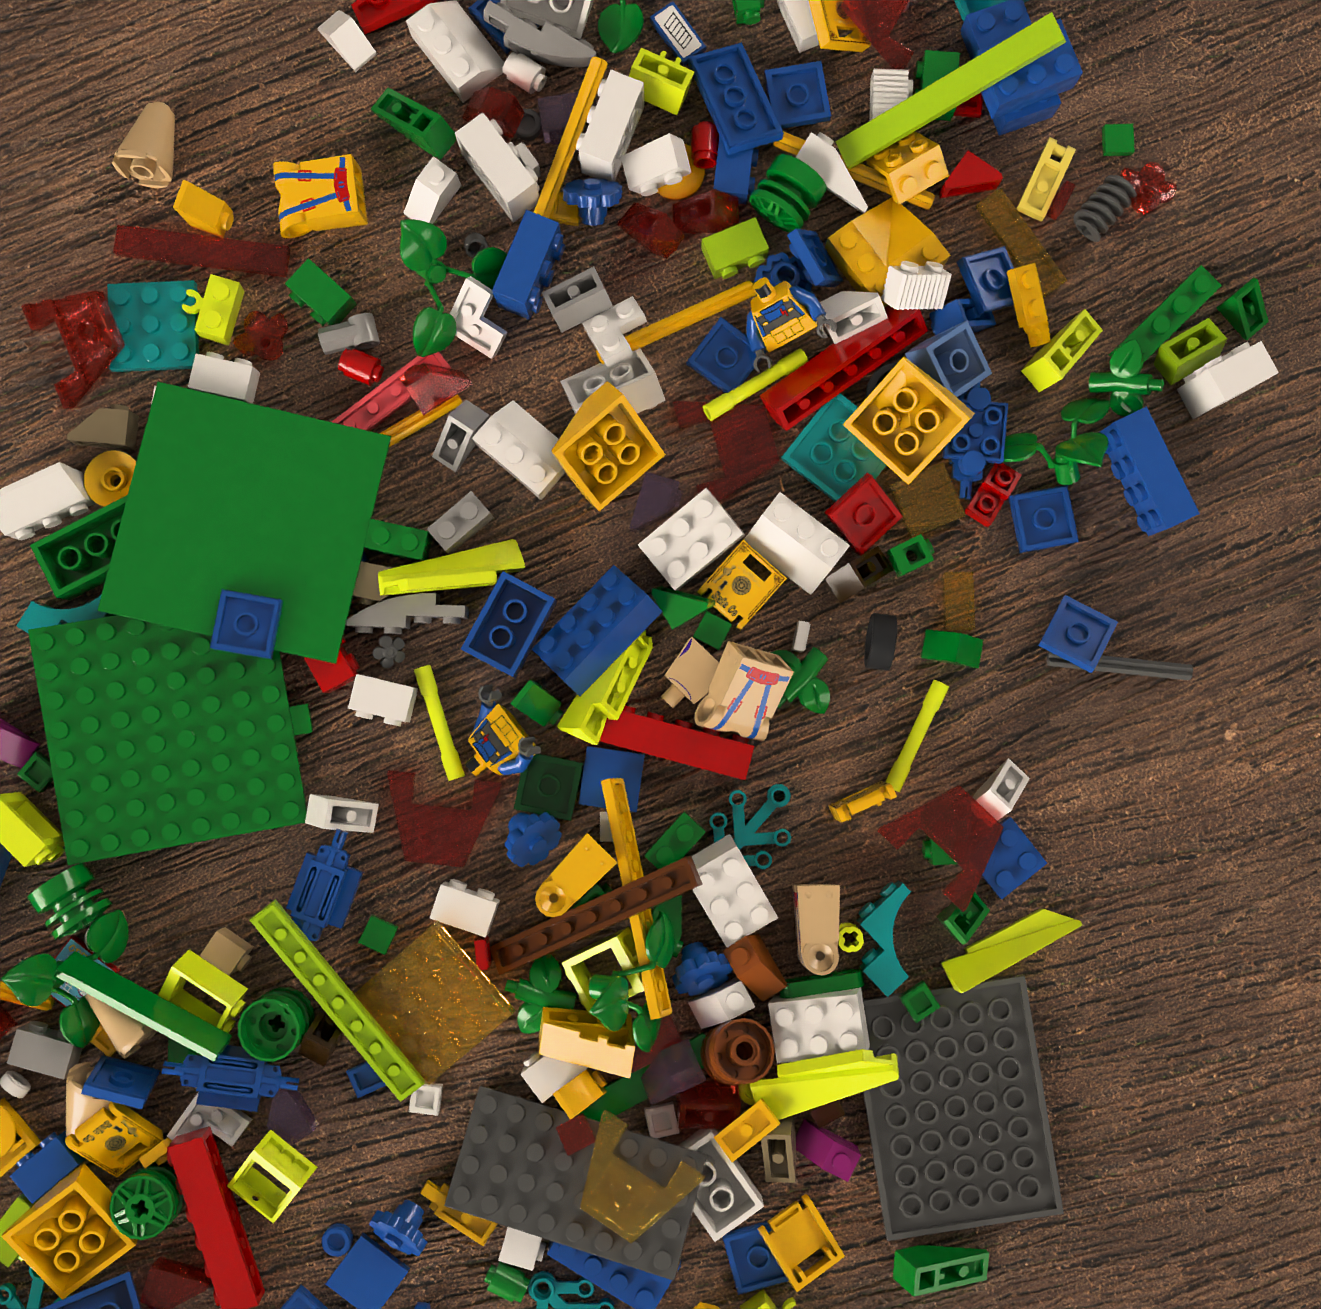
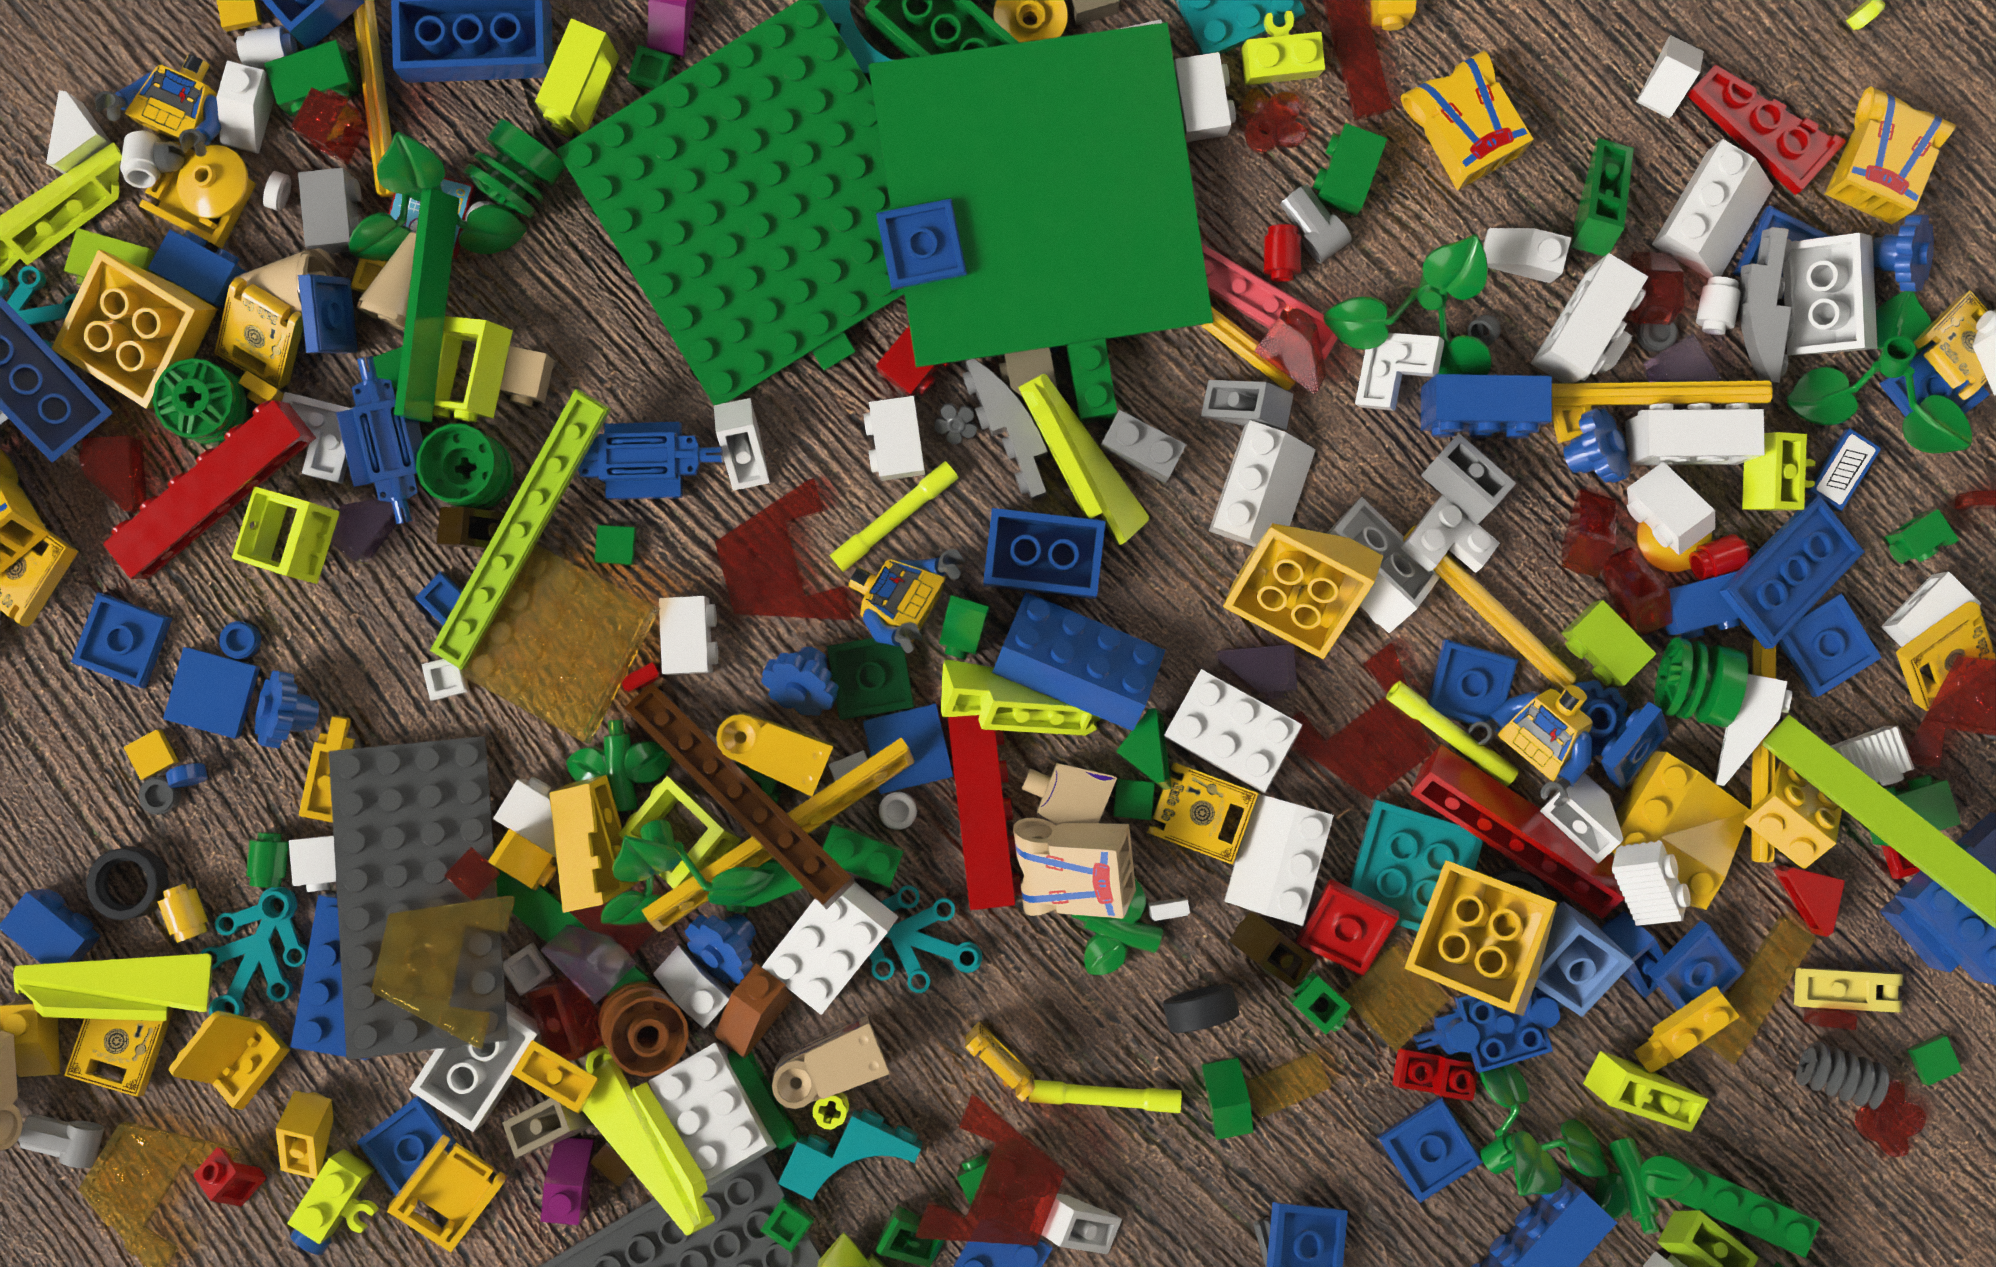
camera: 65 degrees right, 0 degrees up
(653, 804) = (898, 810): none -> white tile

